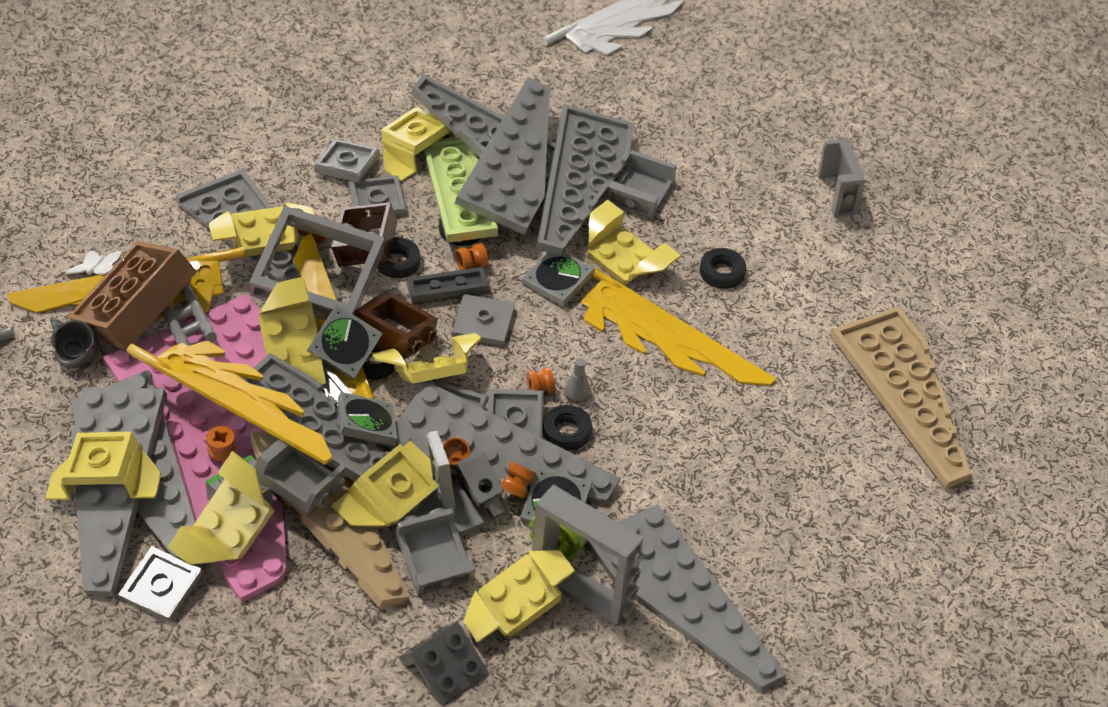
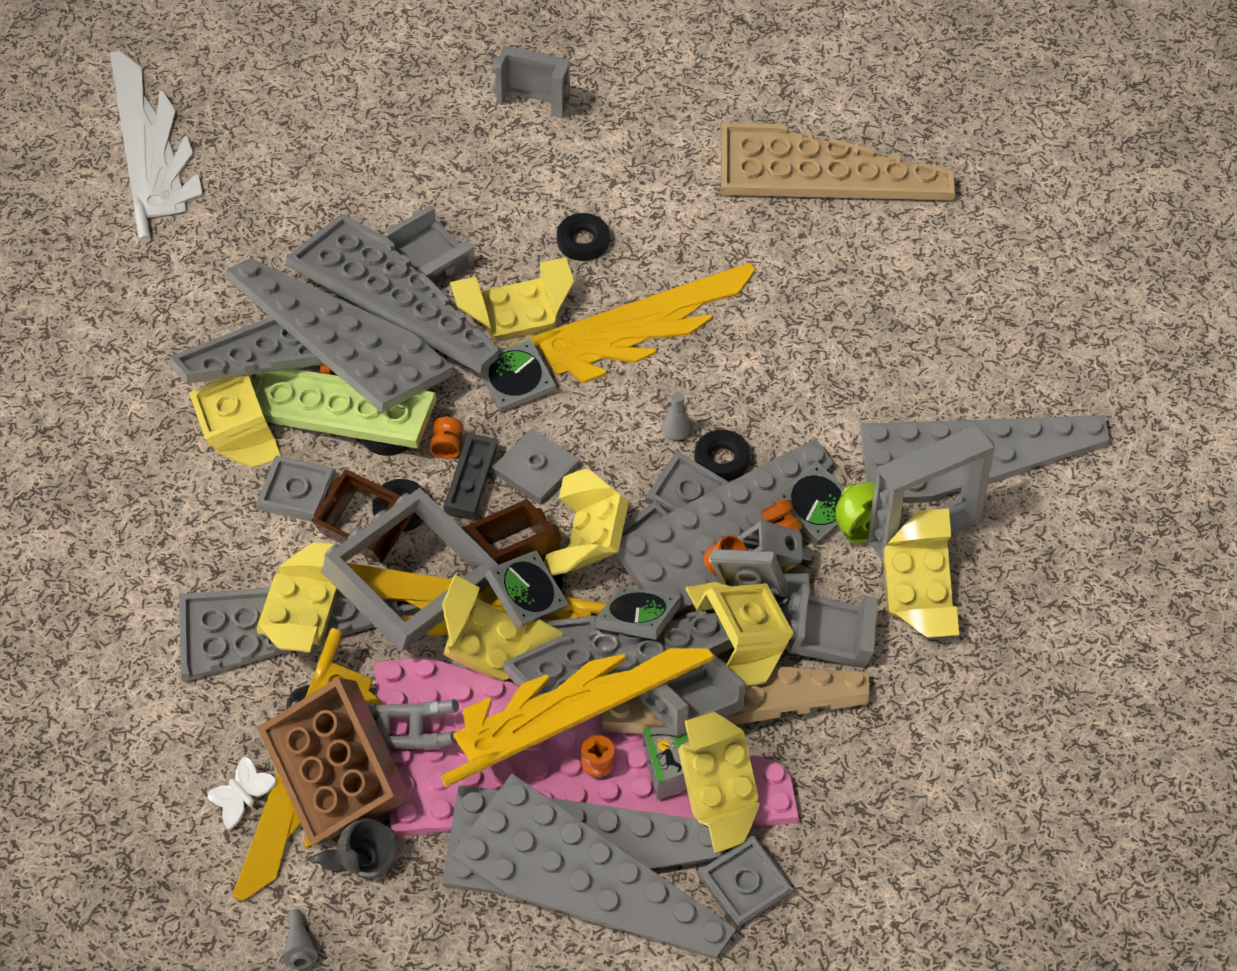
camera: 60 degrees left, 5 degrees up
(106, 460) = (580, 873): light yellow piece -> none
(347, 160) = (223, 493): light grey tile -> none
(446, 662) = (958, 669): dark grey bracket -> none
(541, 380) = (654, 450): orange wheel -> none

